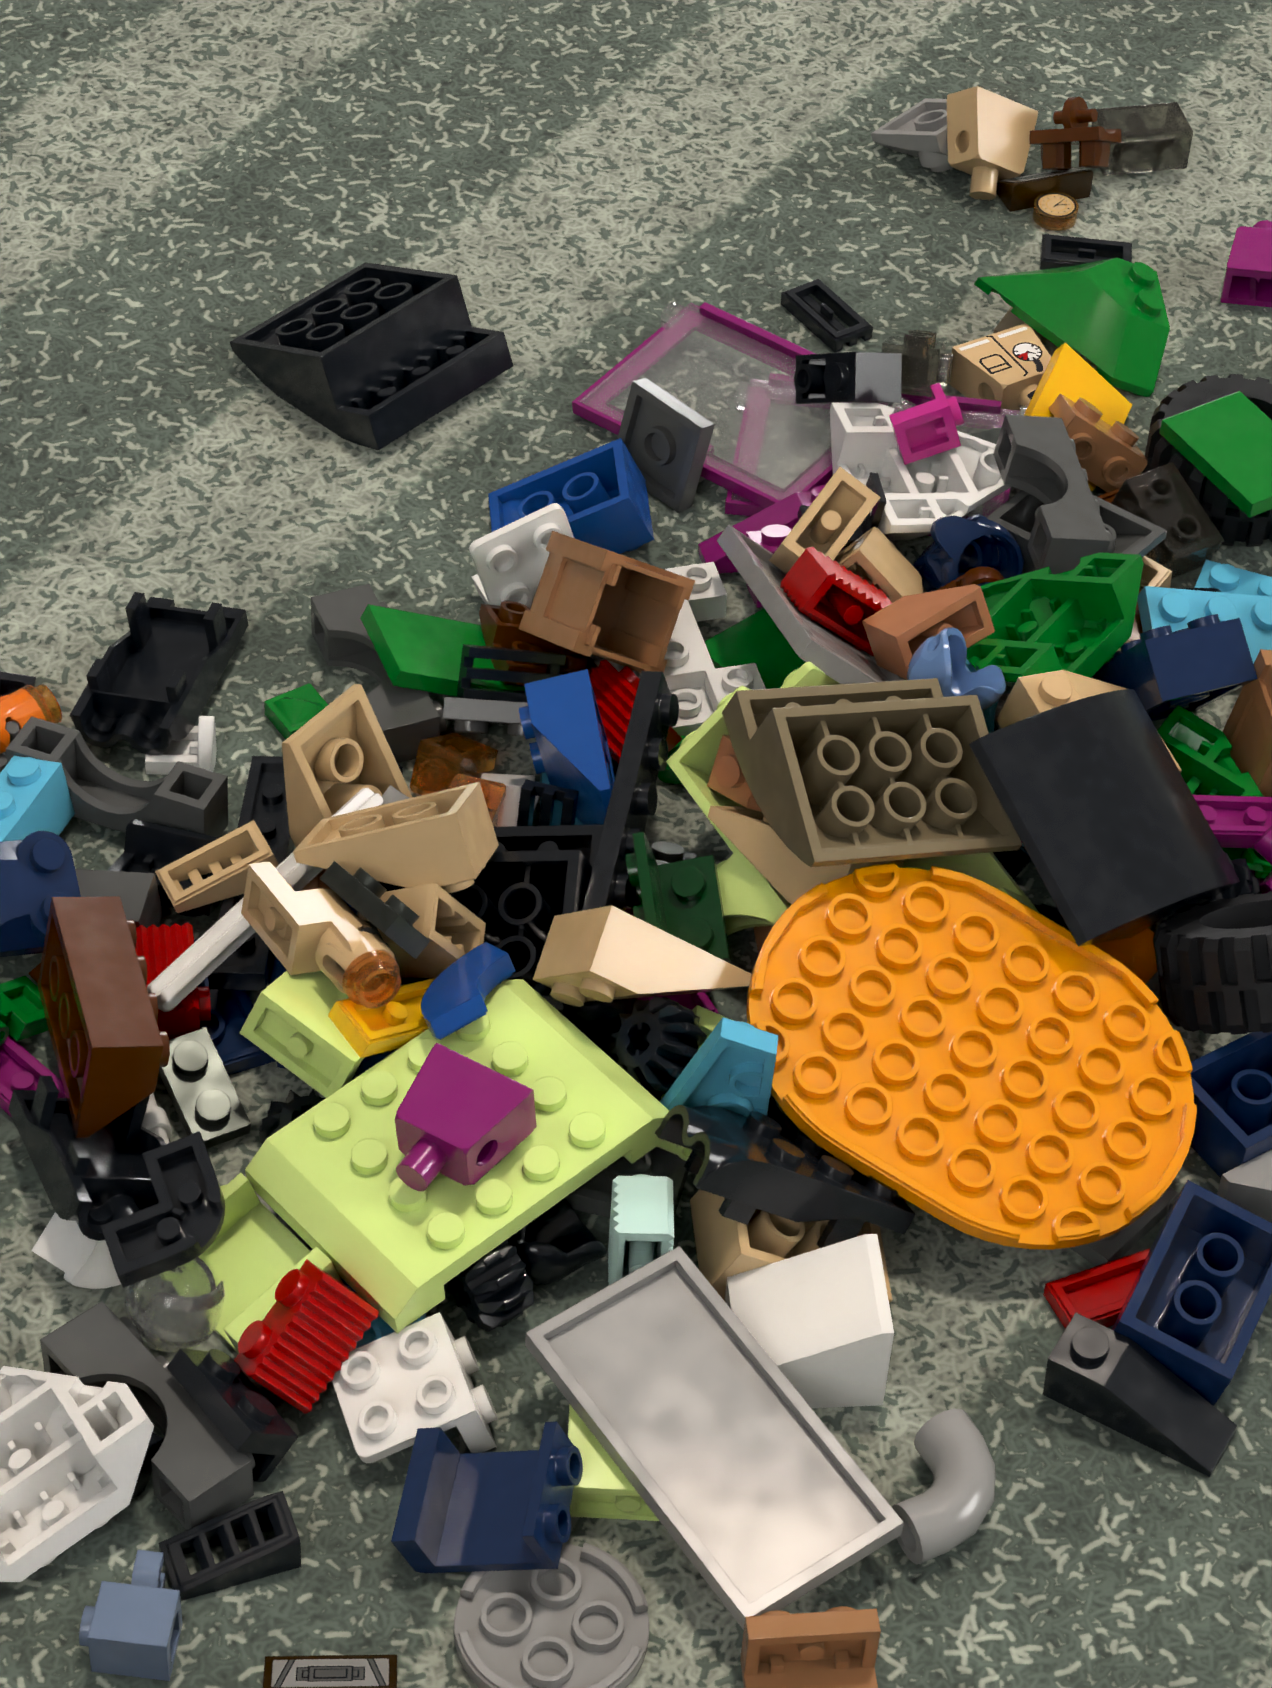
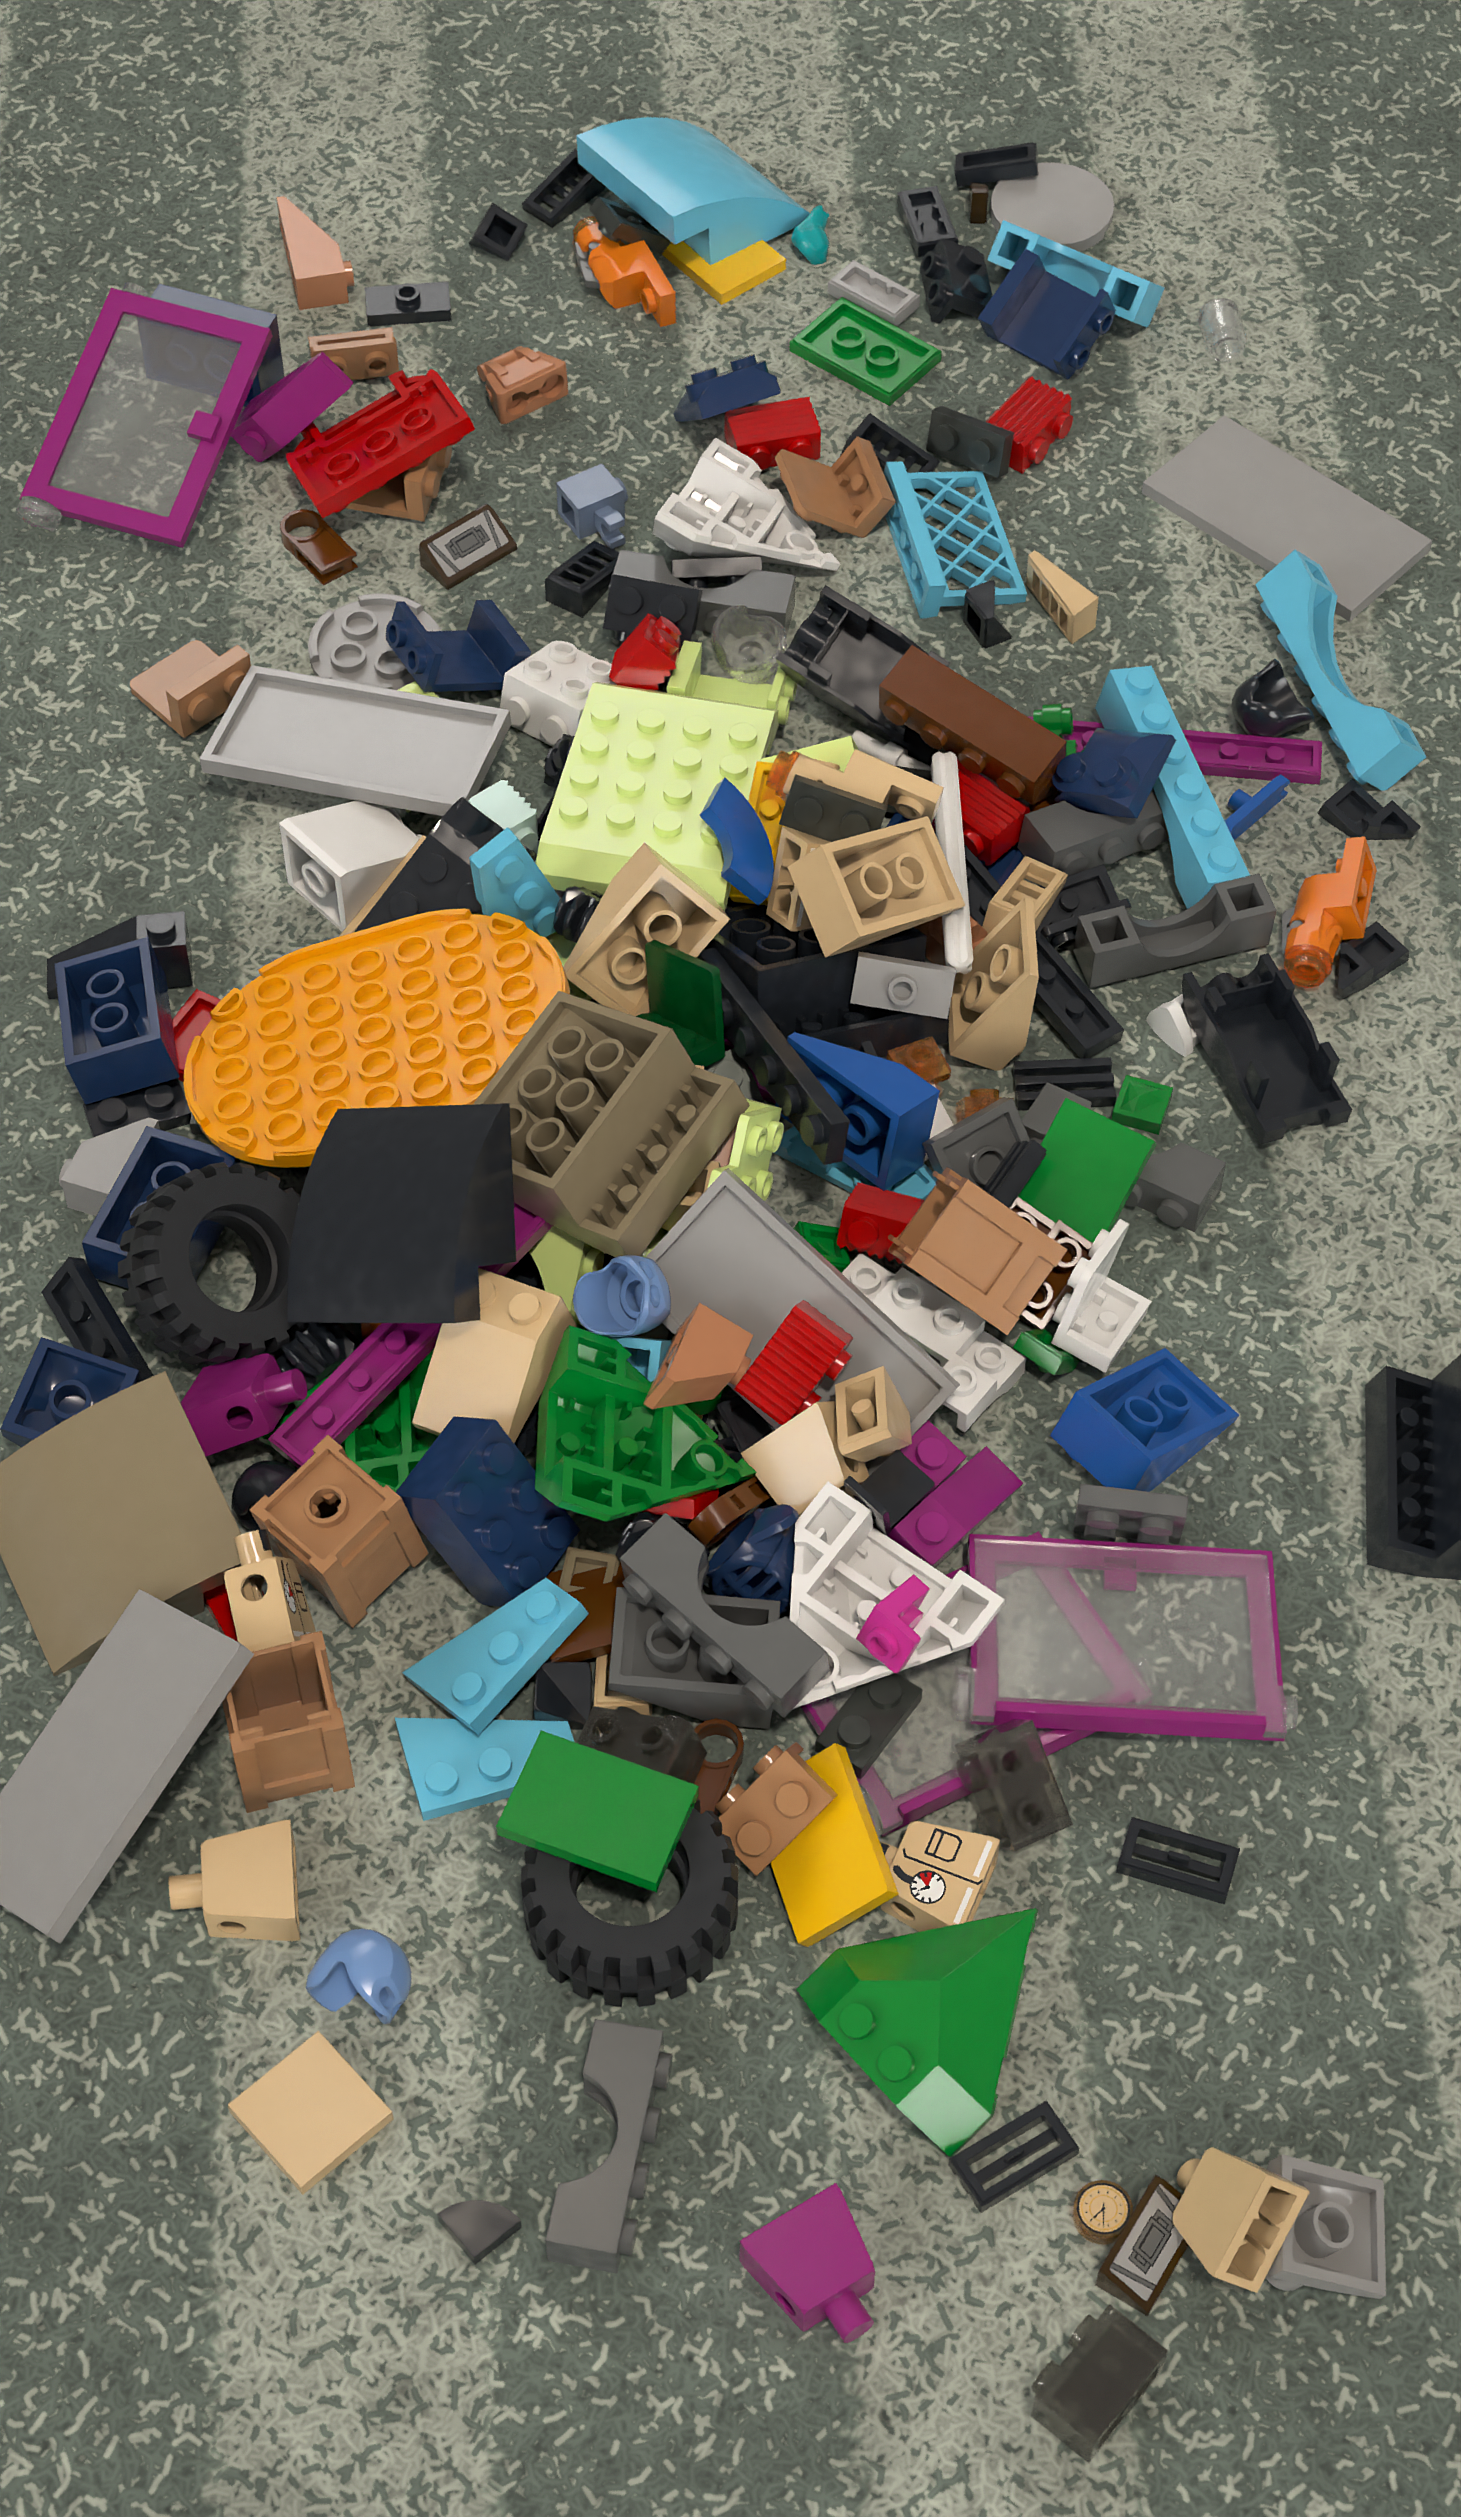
camera: 145 degrees right, 10 degrees up
(180, 1224) = (773, 632): black plate -> none
(459, 1120) = (649, 744): magenta torso -> none
(848, 378) = (1018, 1654): black slope -> none
(959, 1492) = (191, 833): light grey cylinder -> none
(1092, 141) = (1142, 2274): reddish brown hips -> none

